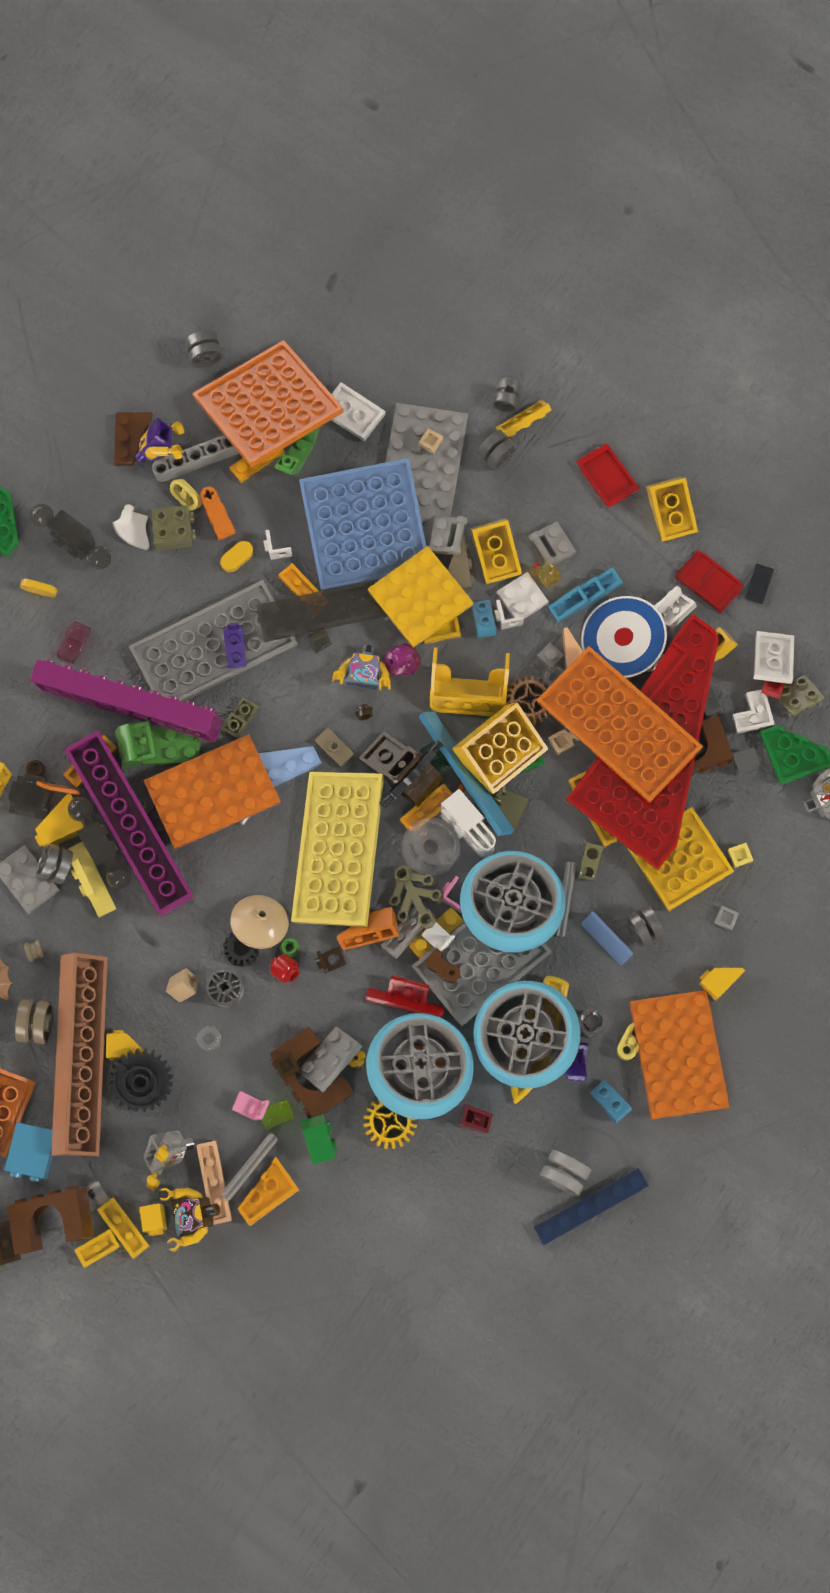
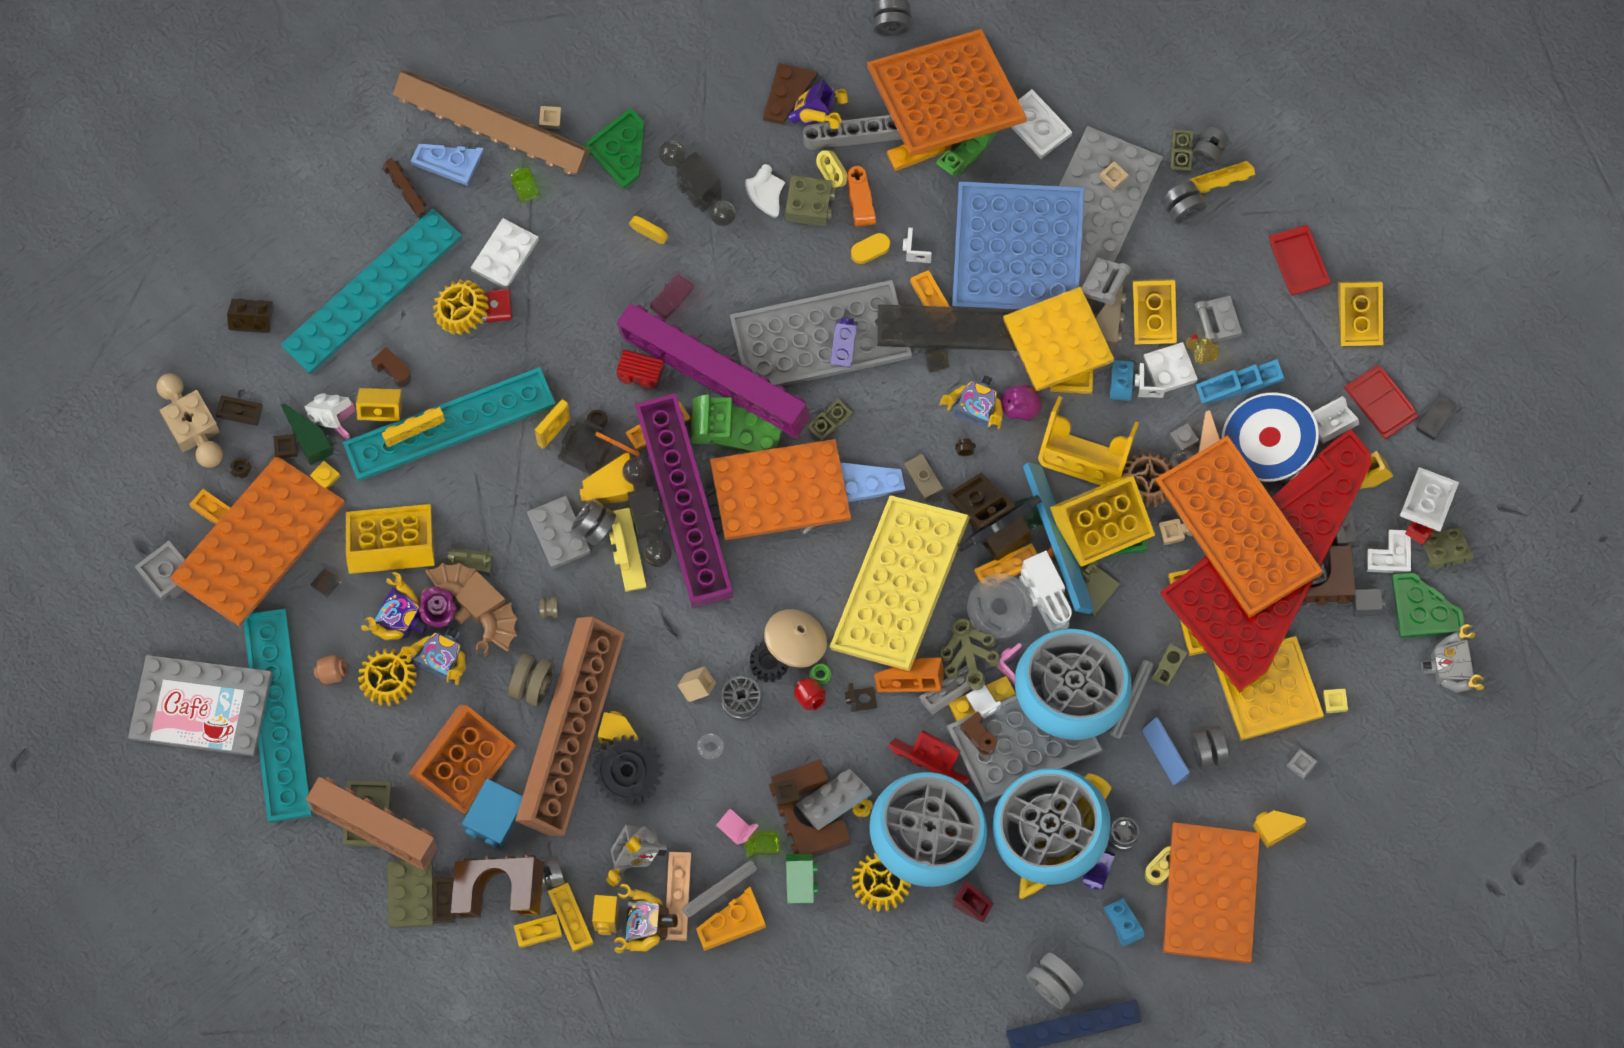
camera: 15 degrees right, 5 degrees down
(62, 715) = (640, 369): none -> red brick
(482, 404) = (1181, 150): none -> olive slope

